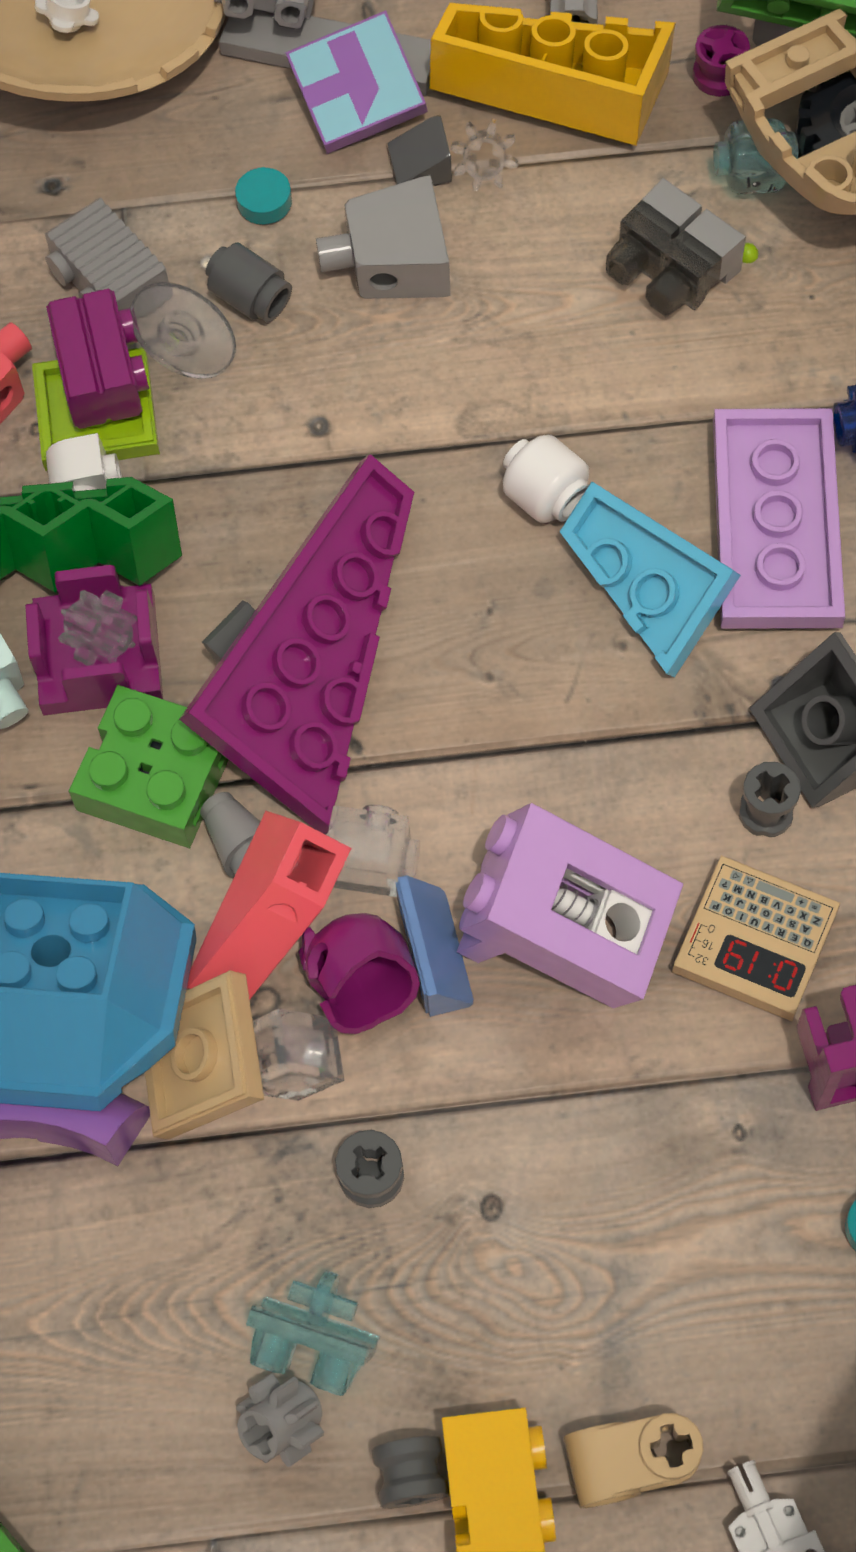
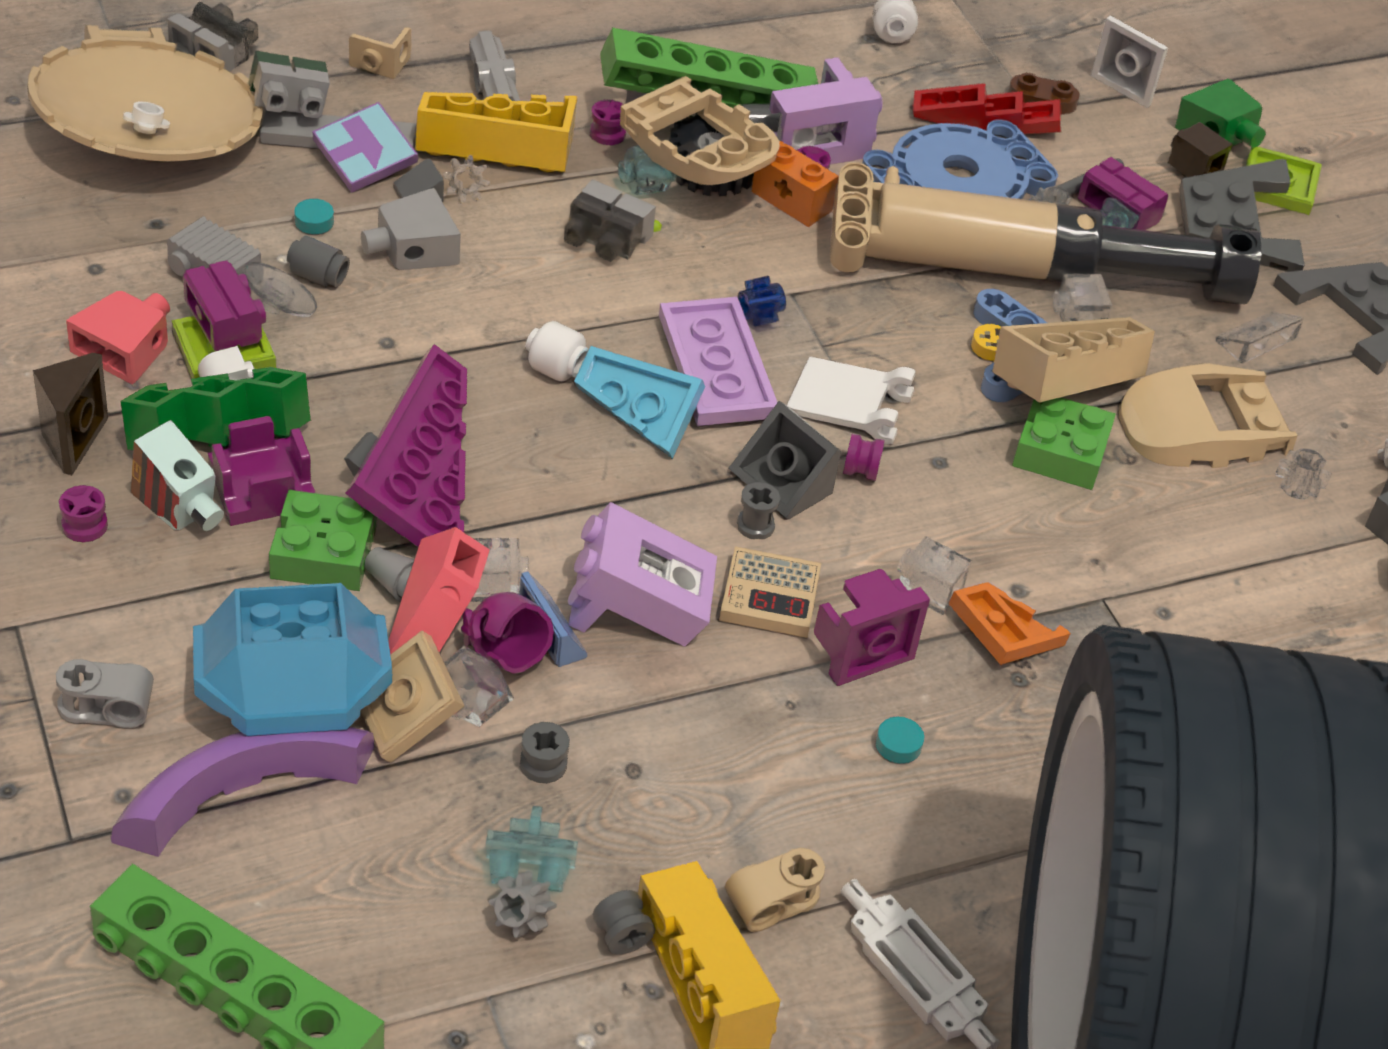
camera: 25 degrees left, 20 degrees down
(98, 628) = (268, 452): clear gear -> none

